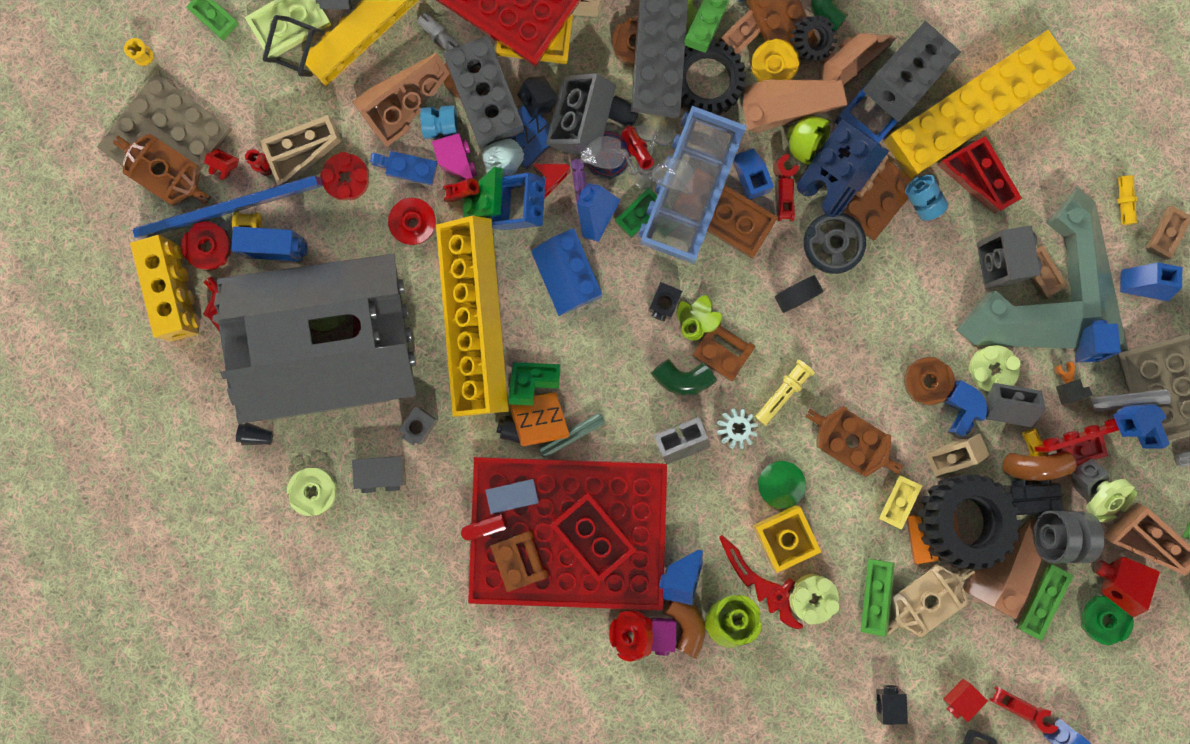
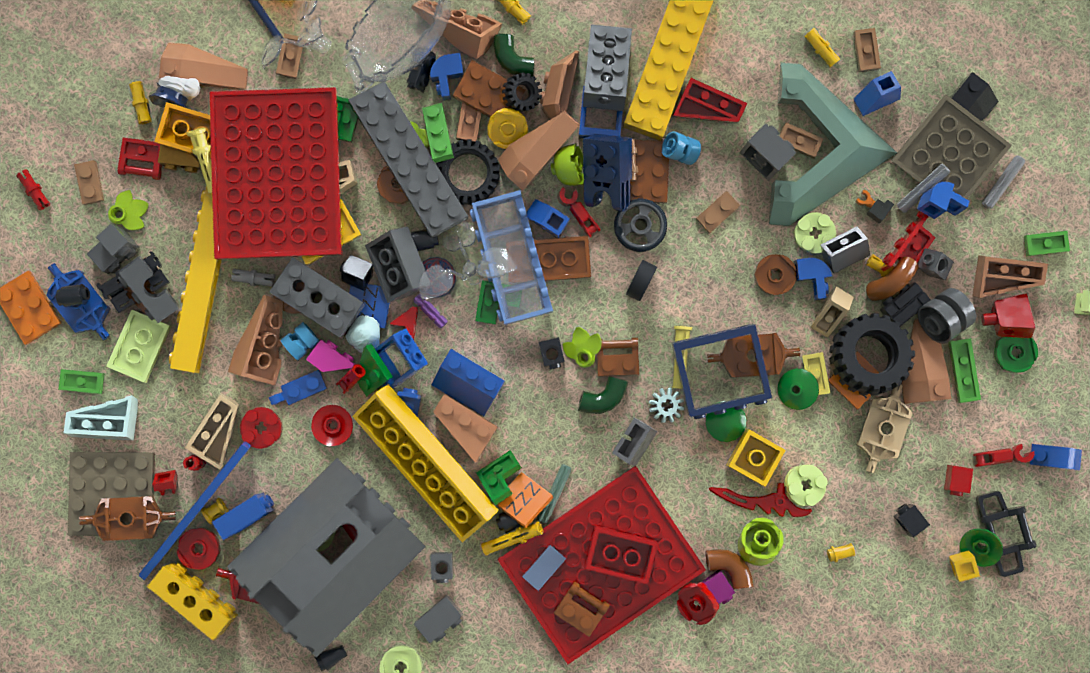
camera: 35 degrees left, 0 degrees up
(139, 51) = (43, 442): yellow bush -> none
(205, 65) = (104, 421): none -> light aqua wedge
(313, 30) = (177, 374): black piece -> none
(483, 528) = (540, 604): red bar -> none
(503, 249) = (411, 399): none -> blue bracket
(528, 454) = (490, 546): none -> yellow pin
(535, 312) = (465, 425): none -> nougat wedge
(595, 210) = (457, 324): blue slope -> none
(637, 147) = (454, 259): red pin -> none
(682, 578) = (704, 538): blue slope -> none
(802, 687) = (841, 552): none -> yellow pin
(807, 475) = (740, 403): none -> dark blue window
(873, 516) = (808, 389): none -> green dish
(877, 597) = (848, 452): bright green plate -> none
(916, 283) = (717, 212): none -> medium nougat plate
(1098, 342) = (871, 164): blue slope -> none
(1111, 499) = (958, 267): yellowish green plate -> none

